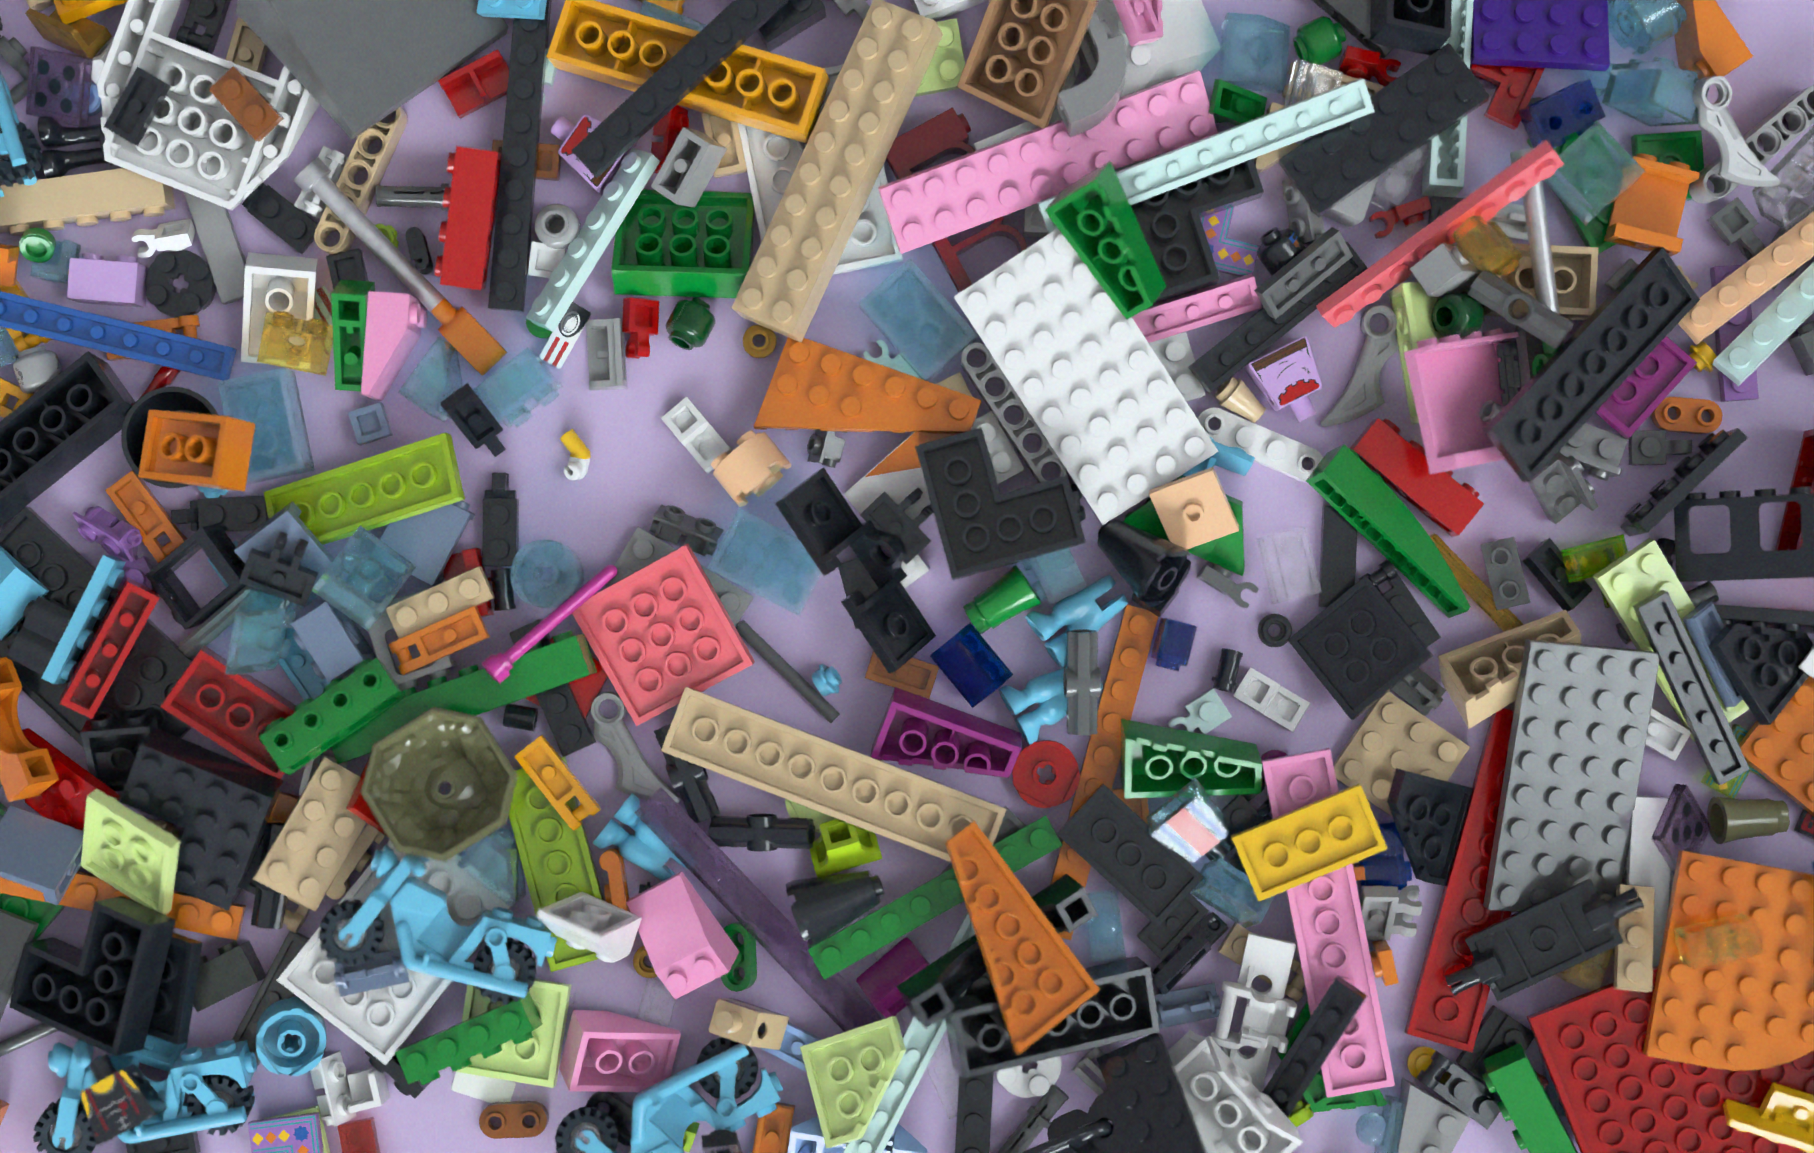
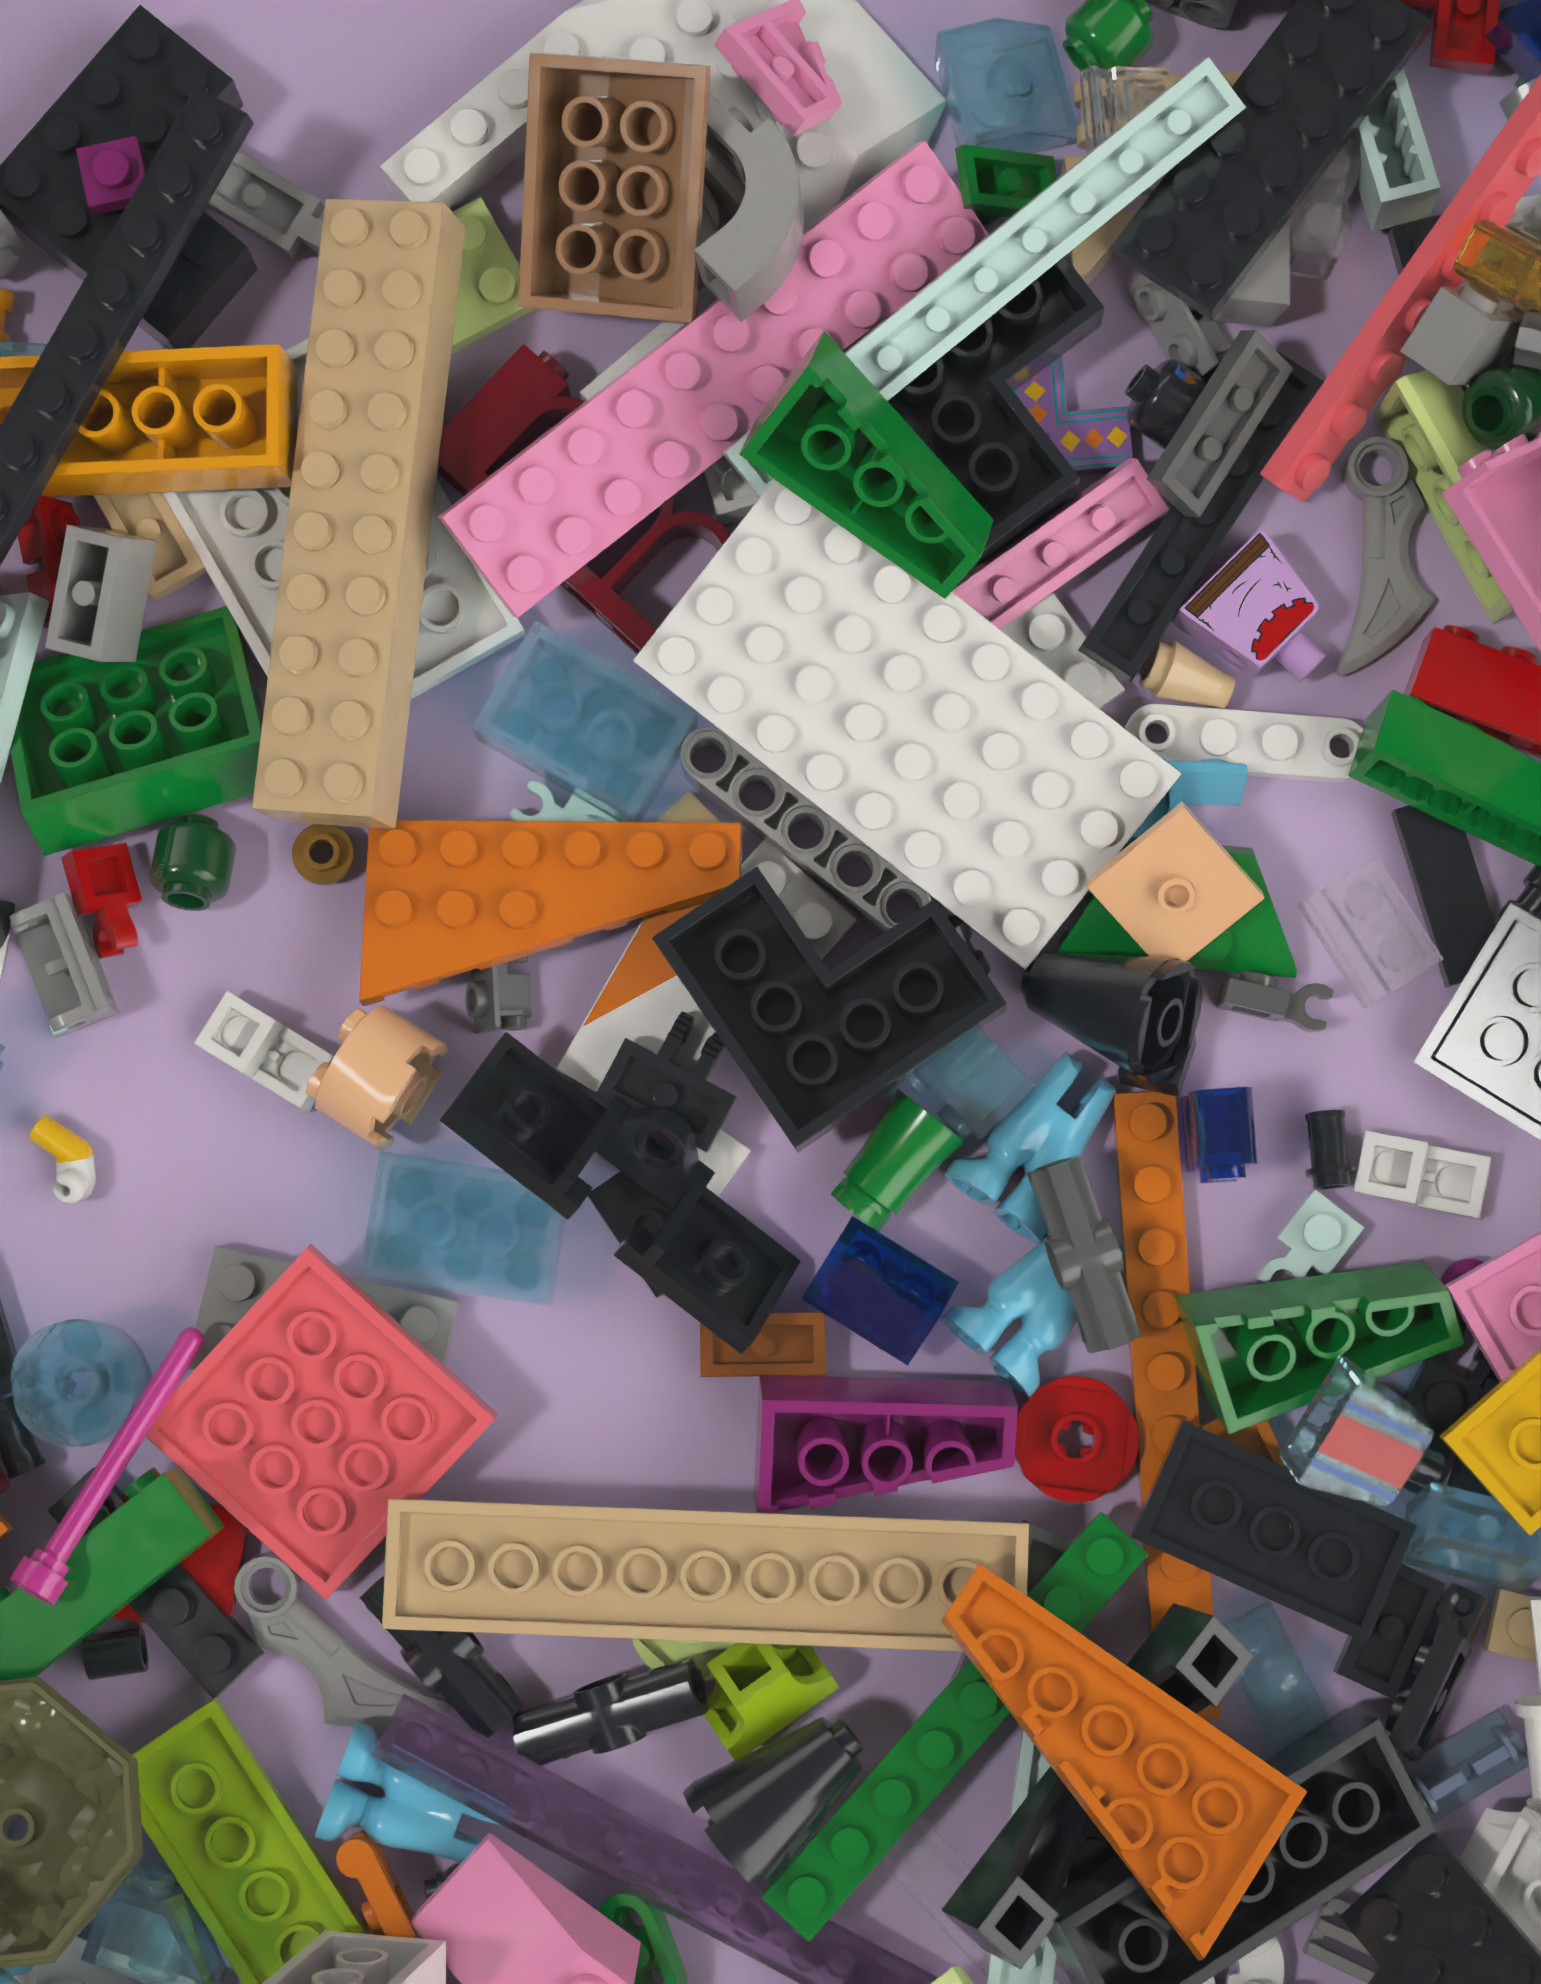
camera: 20 degrees left, 5 degrees down
(556, 781) = (215, 1747): light orange plate -> none
(672, 522) = (273, 1218): dark grey hinge -> none
(787, 672) = (561, 1413): dark grey bar -> none
(826, 680) = (635, 1403): medium azure plate -> none
(890, 970) = (919, 1888): magenta panel -> none
(1285, 630) = (1403, 1048): black plate -> none
(1366, 63) = (1189, 41): red plate -> none
(1409, 213) = (1360, 268): red plate -> none

